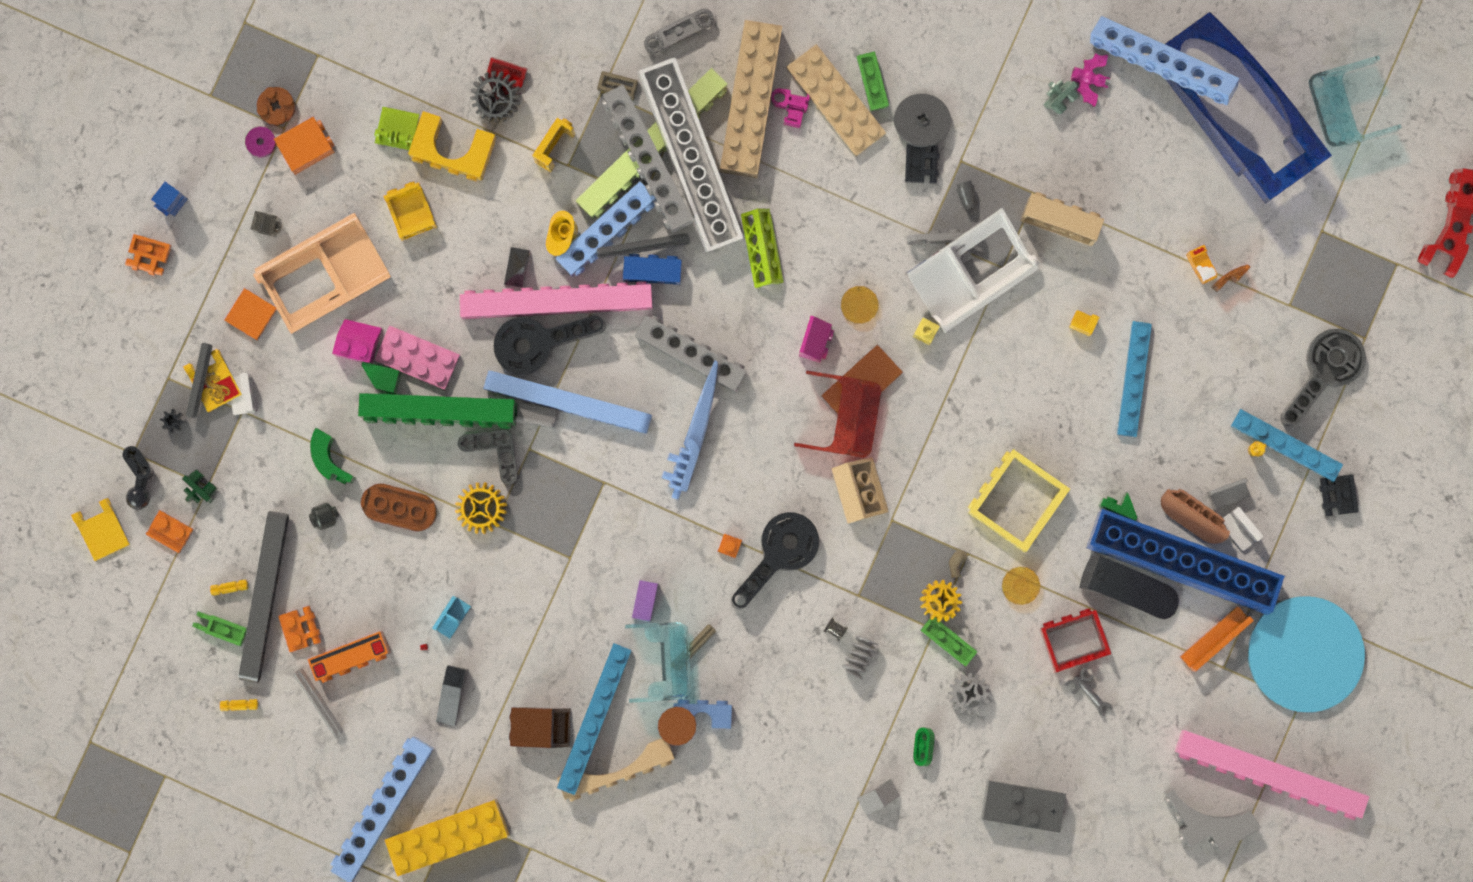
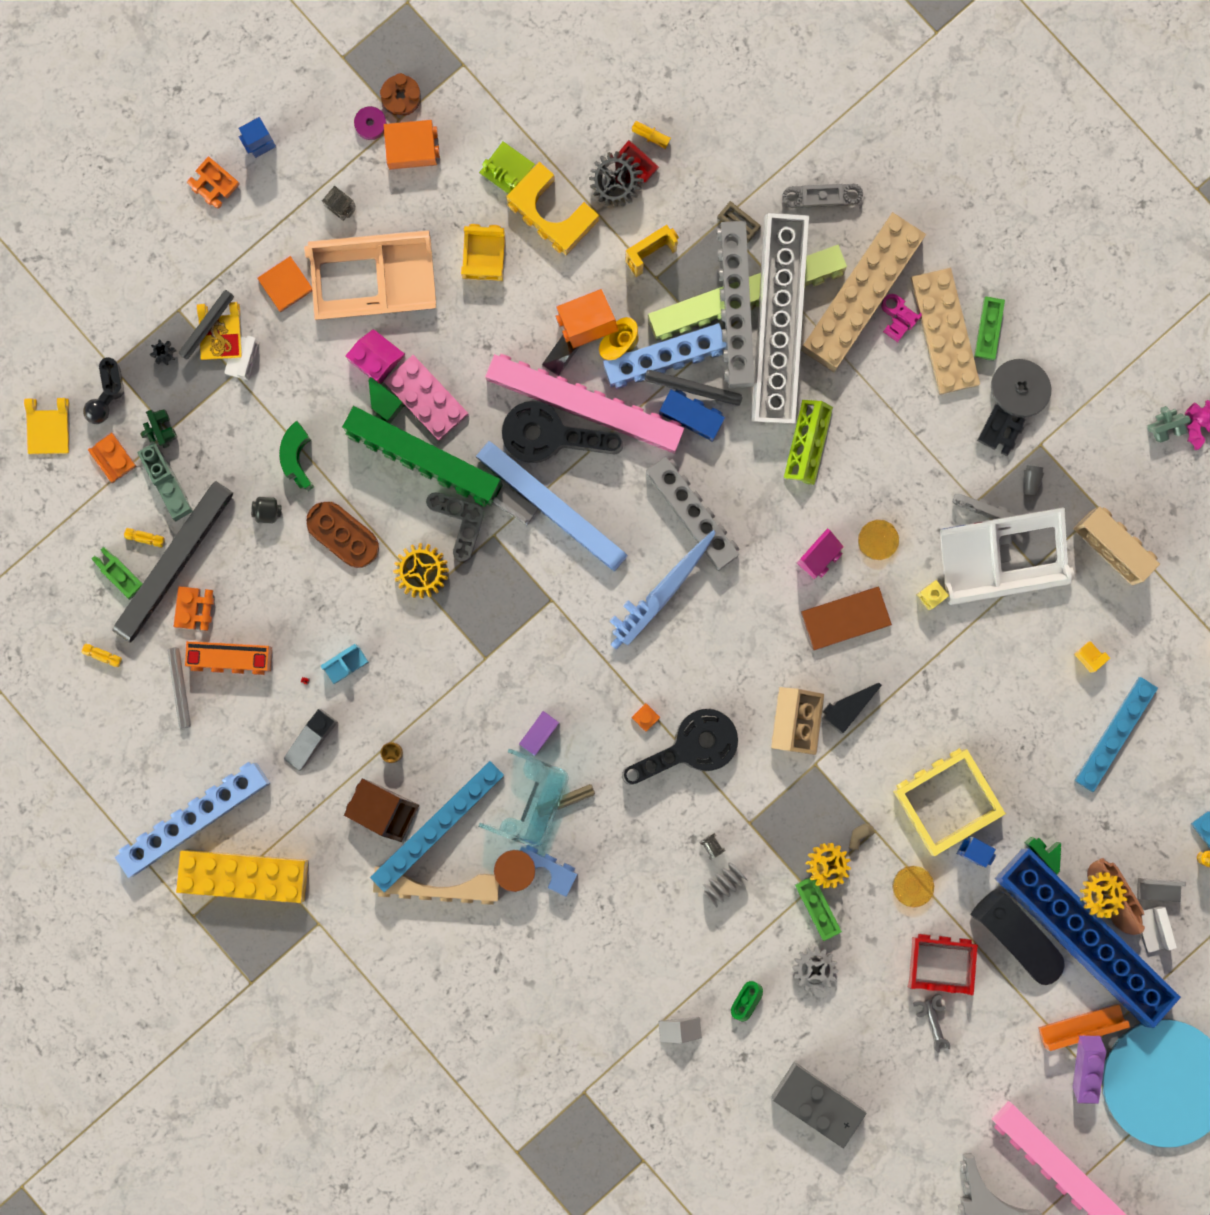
camera: 25 degrees right, 0 degrees up
(225, 531) = (165, 481): none -> sand green slope
(509, 44) = (651, 134): none -> yellow axle
(523, 674) = (388, 752): none -> pearl gold wheel
(524, 228) = (586, 319): none -> orange brick
(855, 416) = (826, 646): clear red windscreen -> none
(896, 462) = (845, 710): none -> black slope
(1060, 532) = (977, 851): none -> blue piece
(1189, 520) = (1108, 888): none -> yellow gear
(1235, 671) = (1089, 1069): none -> medium lavender brick

